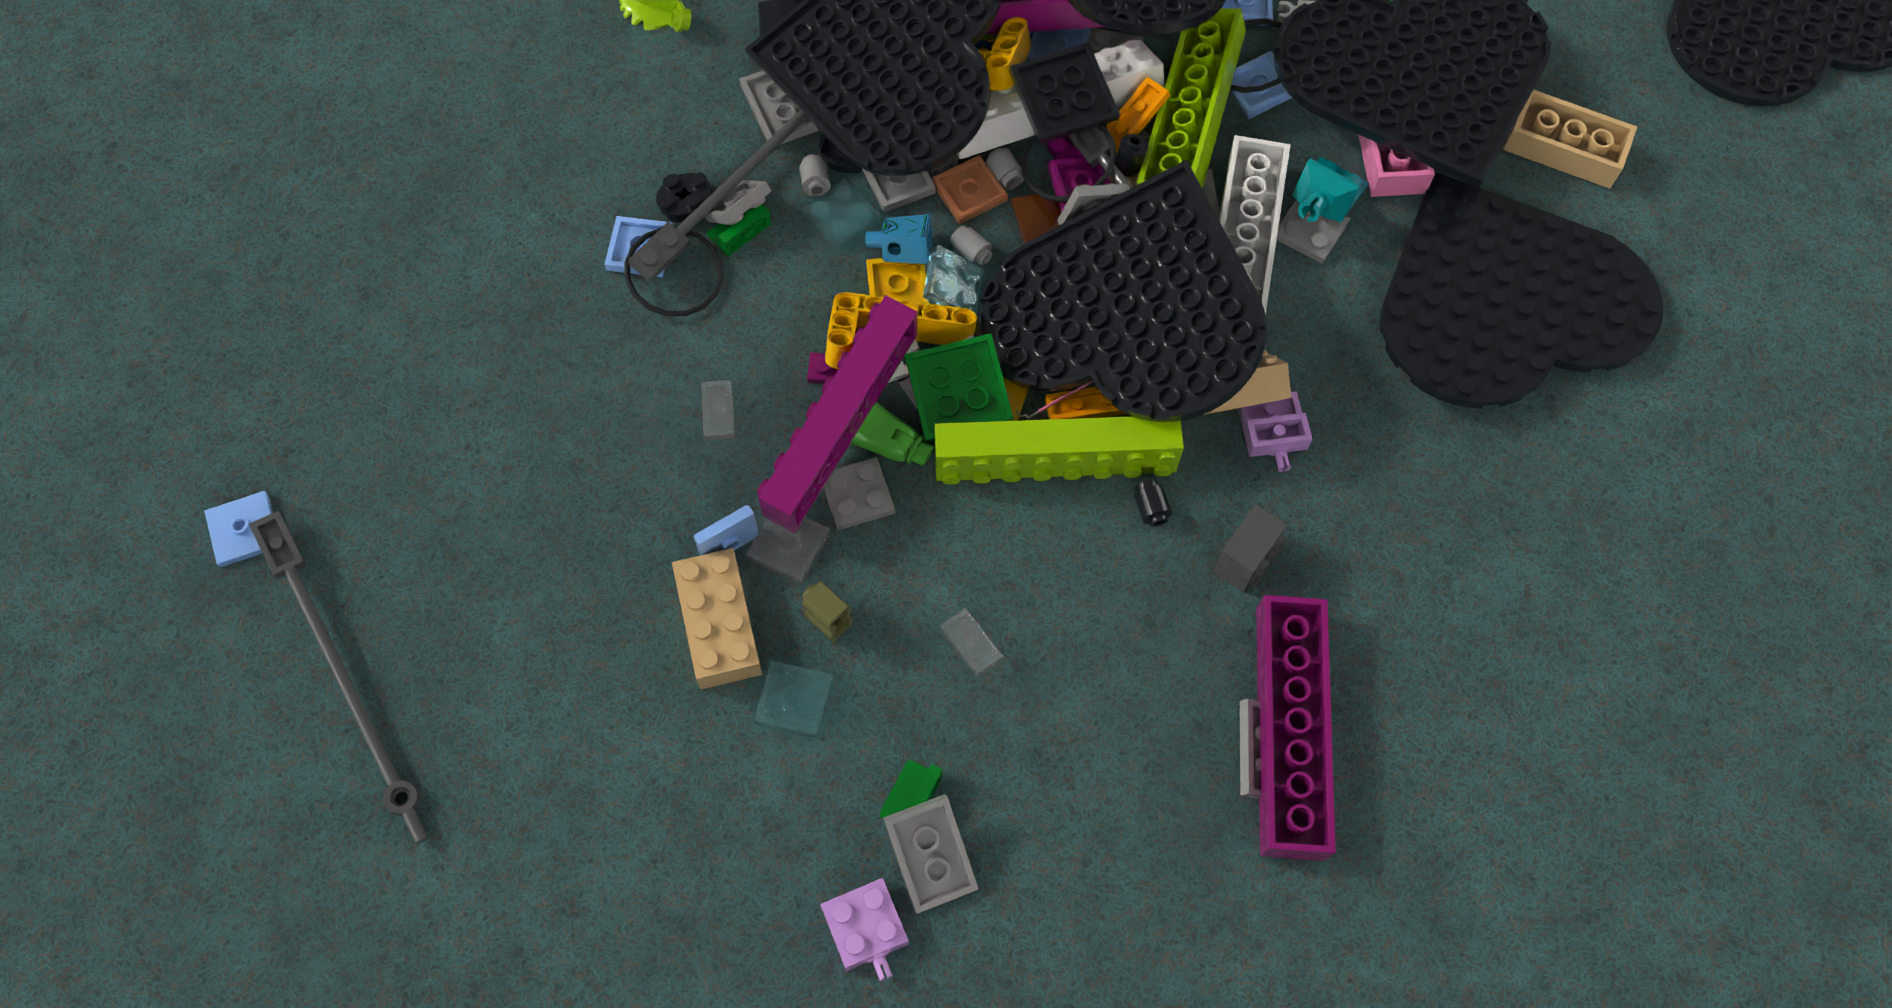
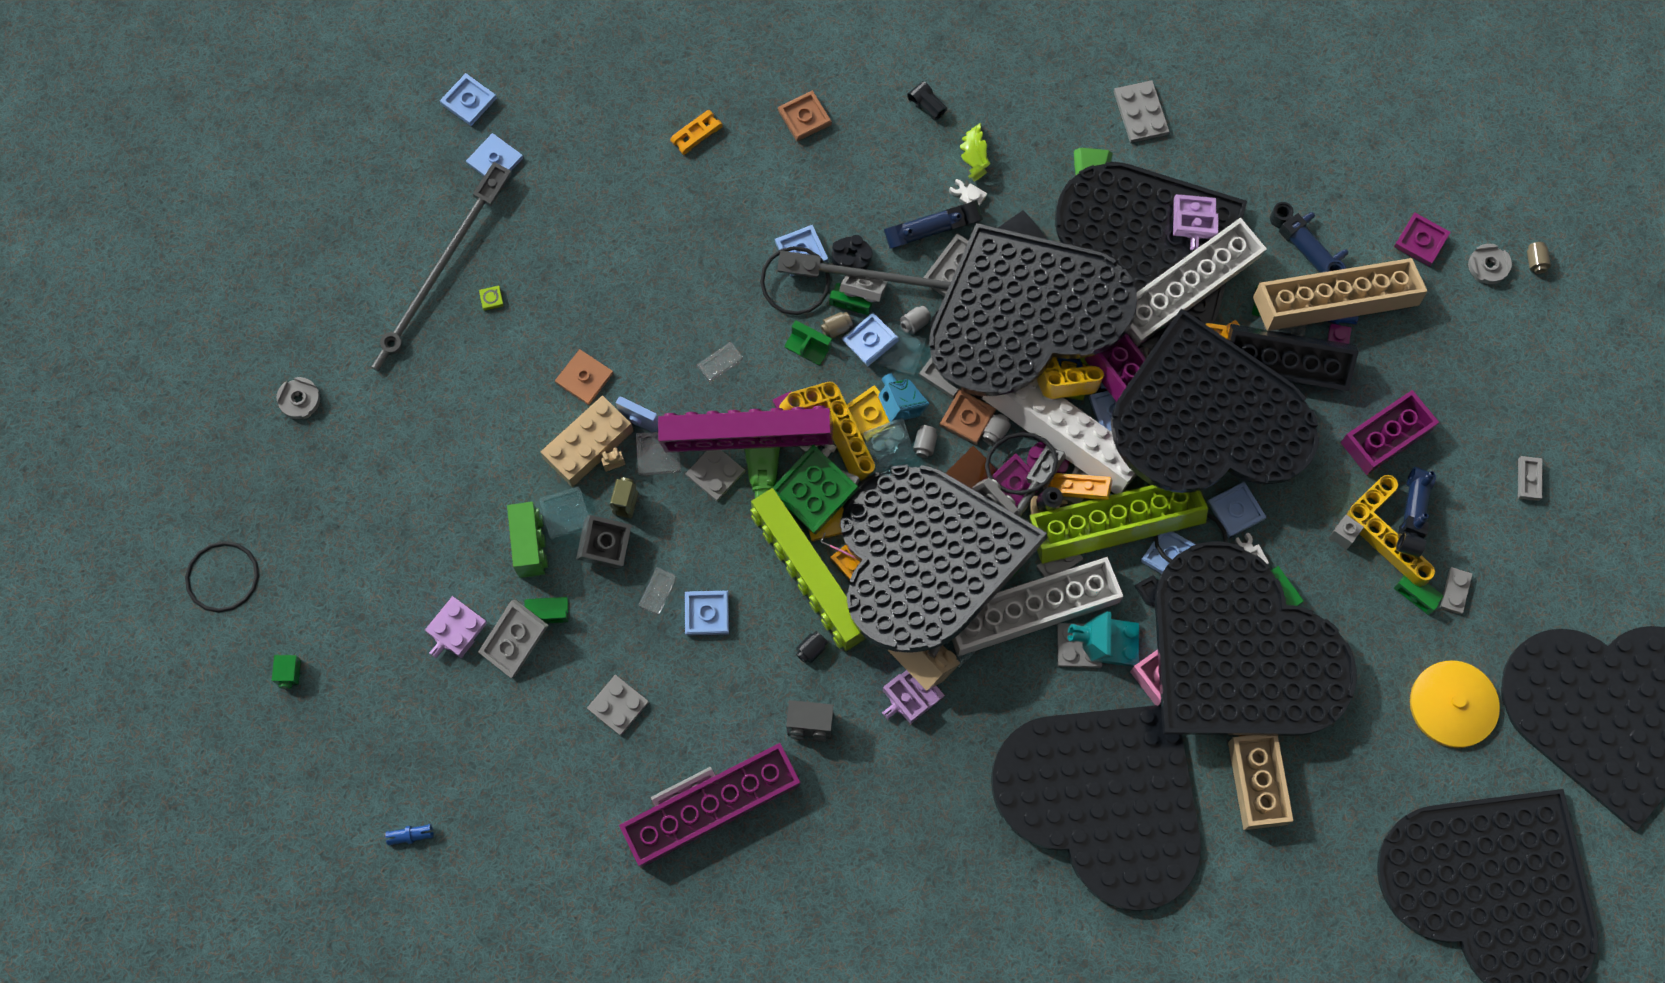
camera: 60 degrees right, 5 degrees up
(133, 515) = (468, 99): none -> light blue plate
(370, 963) = (294, 388): none -> light grey plate
(396, 276) = (696, 131): none -> light orange plate
(432, 635) = (491, 298): none -> lime tile
(470, 152) = (804, 116): none -> nougat plate
(545, 23) = (923, 97): none -> black piece
(624, 579) = (584, 377): none -> nougat plate
(700, 44) = (968, 193): none -> white plate
(710, 95) = (933, 224): none -> dark blue piece
(761, 258) = (836, 324): none -> dark tan brick
(761, 301) = (808, 343): none -> green panel
(763, 600) = (612, 460): none -> tan plate
(805, 761) = (527, 539): none -> bright green brick
(806, 233) = (870, 339): none -> light blue plate
(869, 667) = (603, 542): none -> dark grey brick
(1035, 599) = (706, 613): none -> light blue plate
(1064, 93) = (1057, 432): black plate -> none
(1093, 773) = (617, 705): none -> light grey plate
(1292, 126) = (1147, 590): none -> black tile

